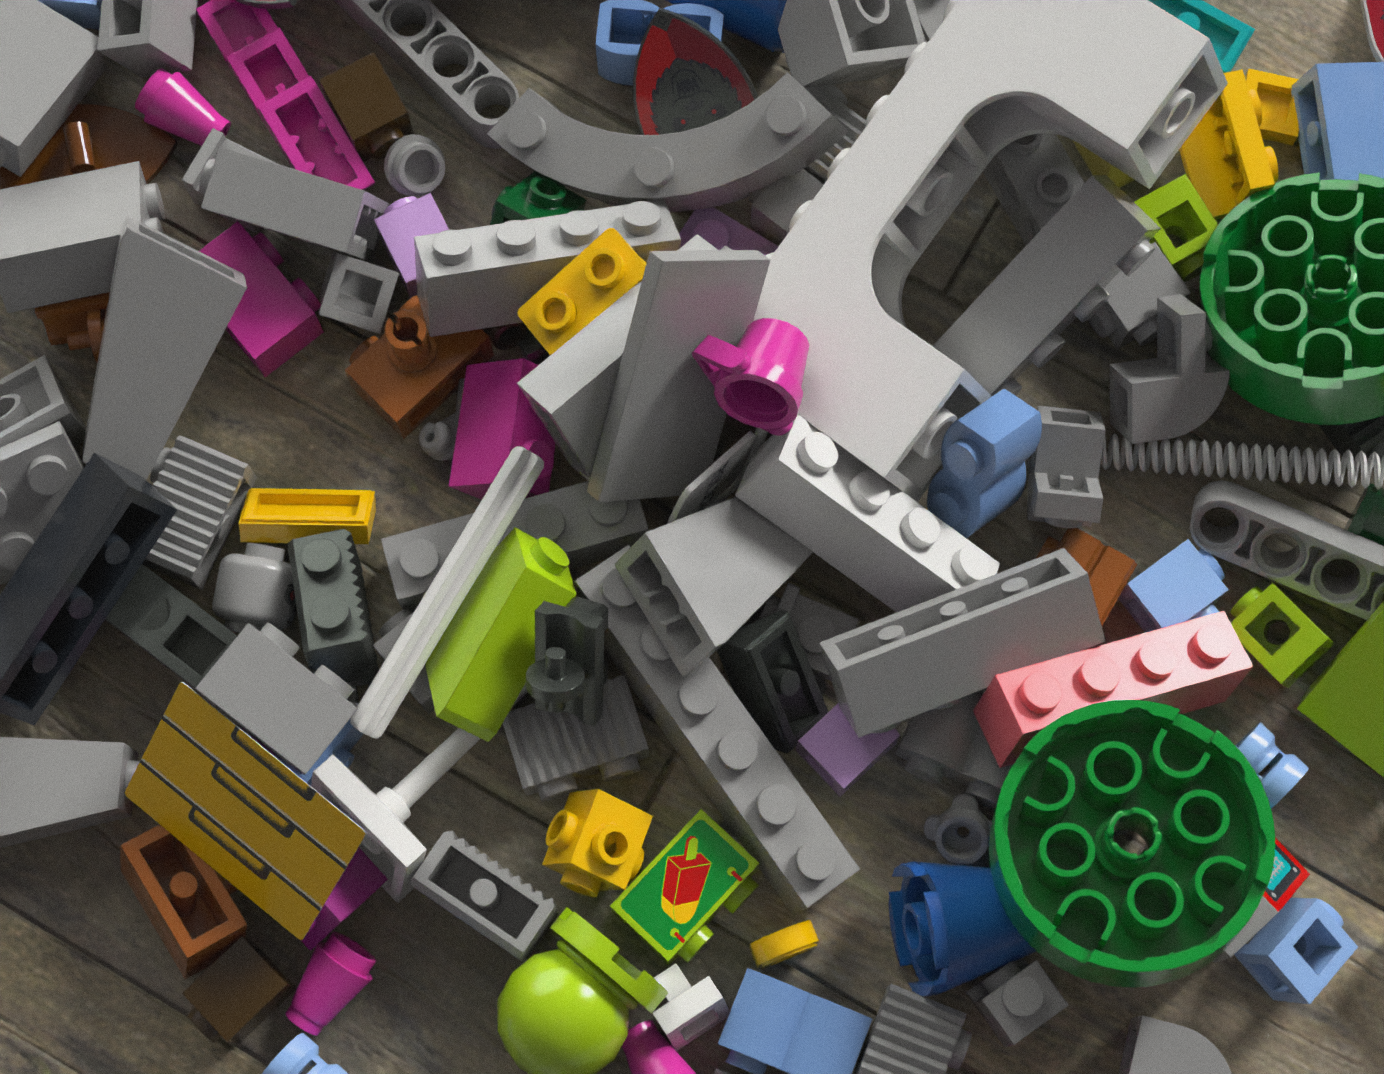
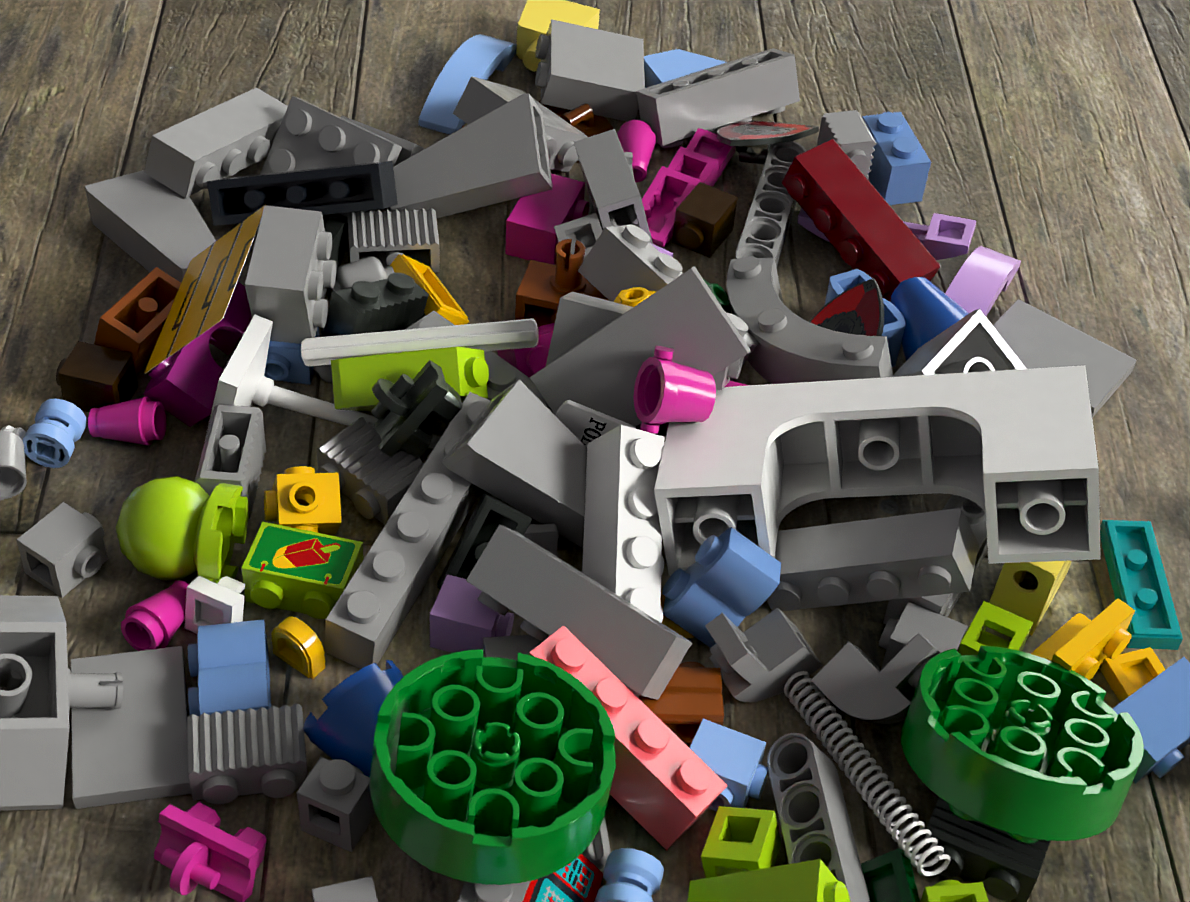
camera: 55 degrees right, 30 degrees down
(414, 165) = (690, 251): light grey plate -> none

